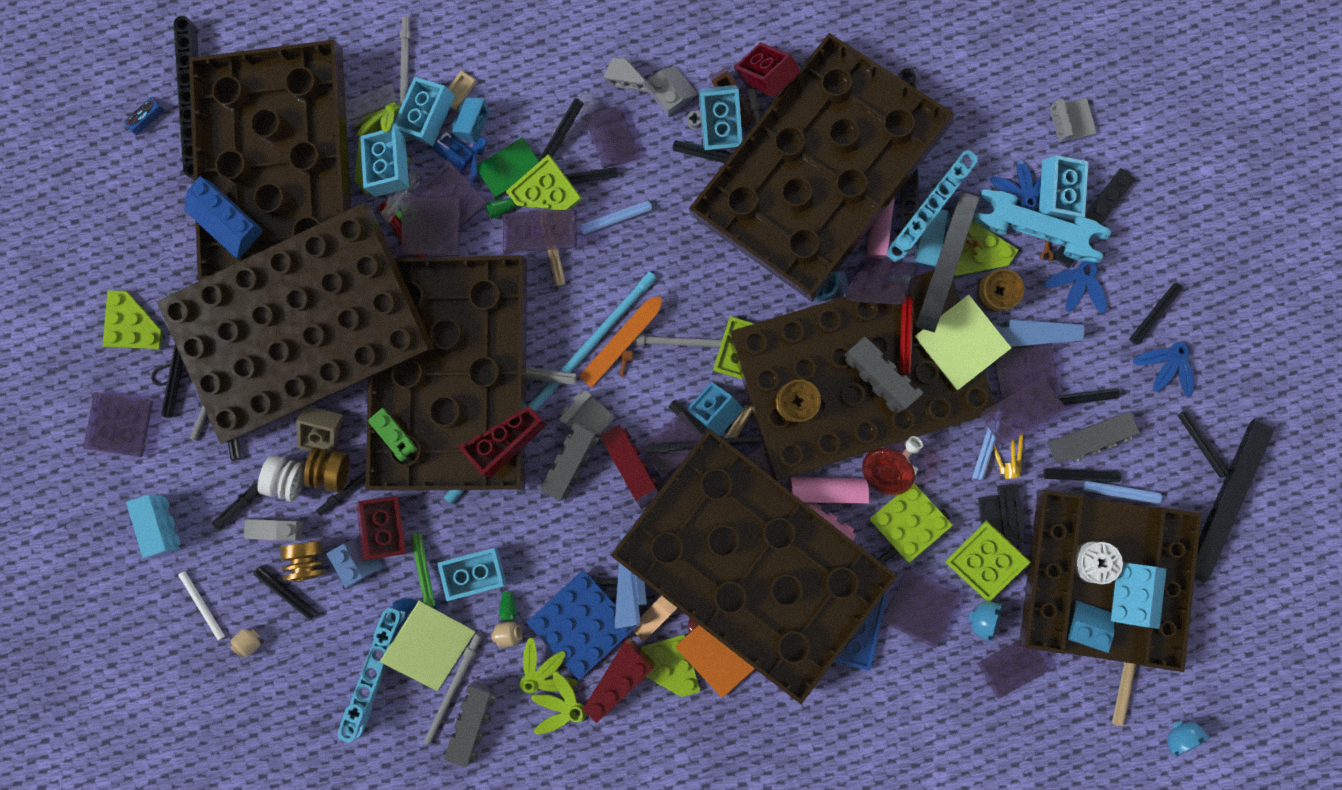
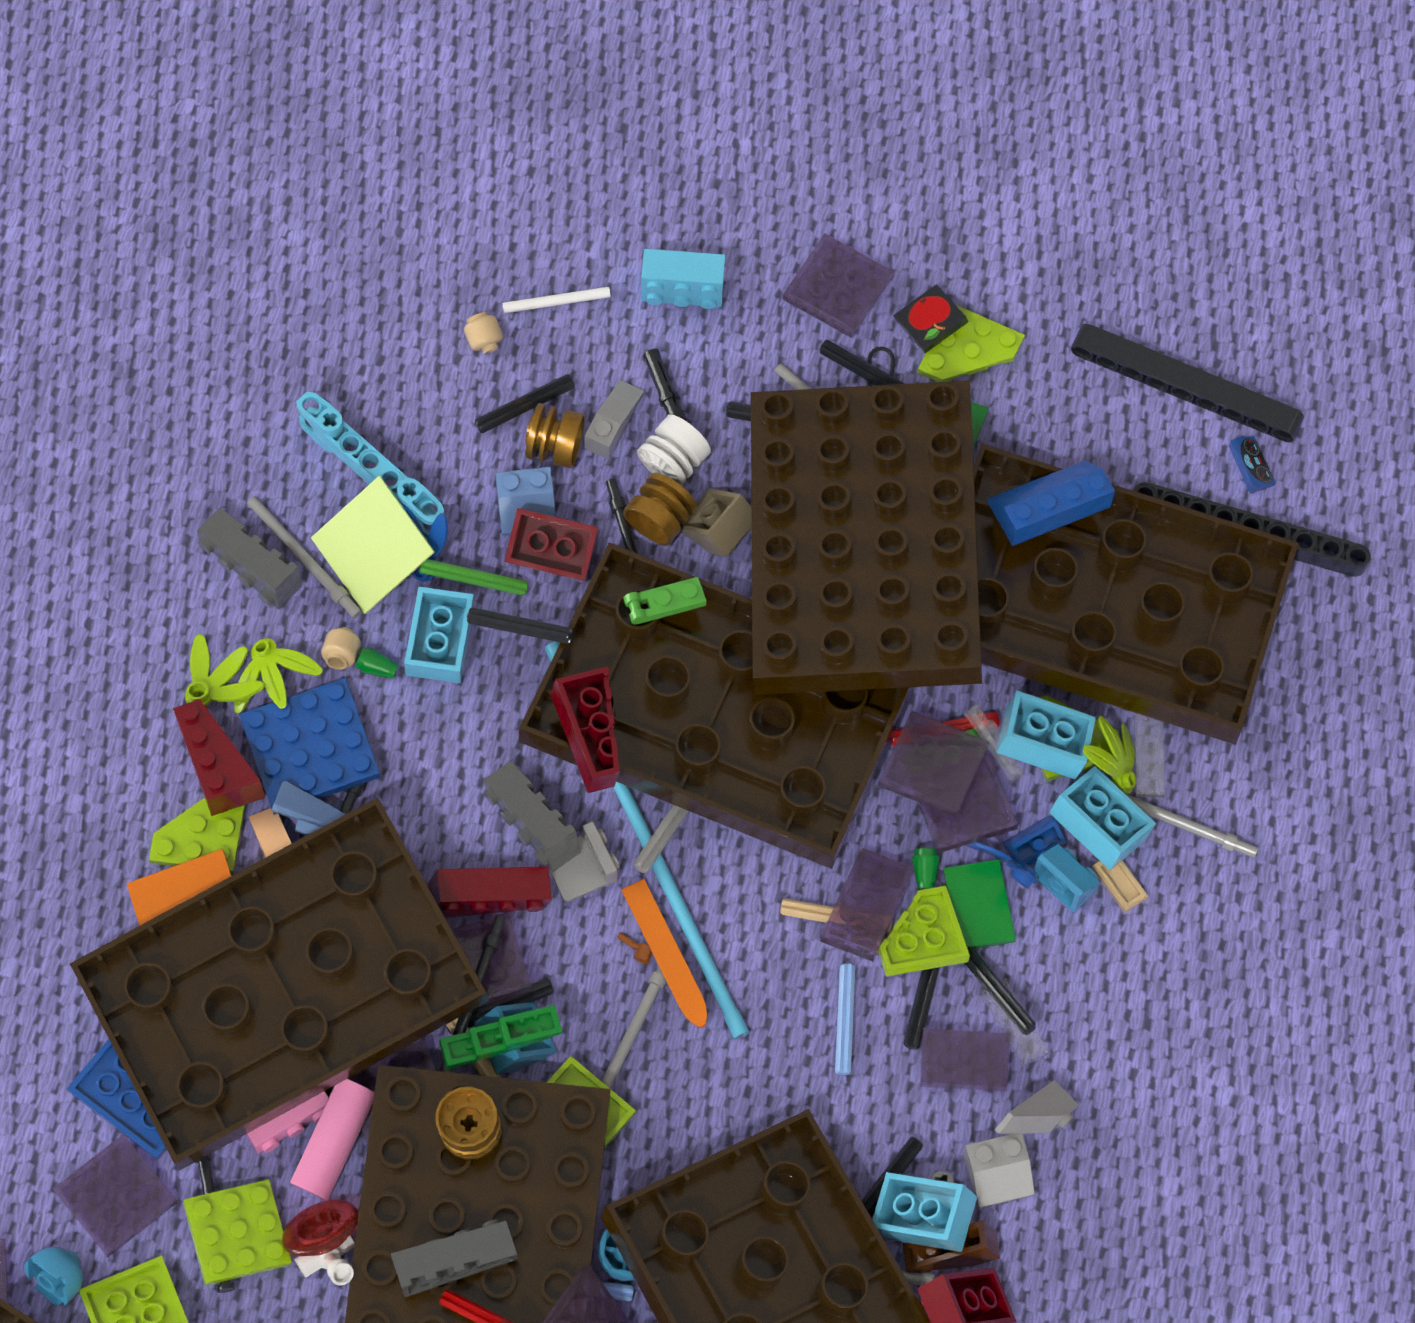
camera: 105 degrees right, 15 degrees down
(101, 176) = (1187, 383): none -> black beam
(119, 353) = (930, 318): none -> tile
(448, 521) = (520, 625): none -> black axle
(726, 412) = (500, 1037): none -> green slope

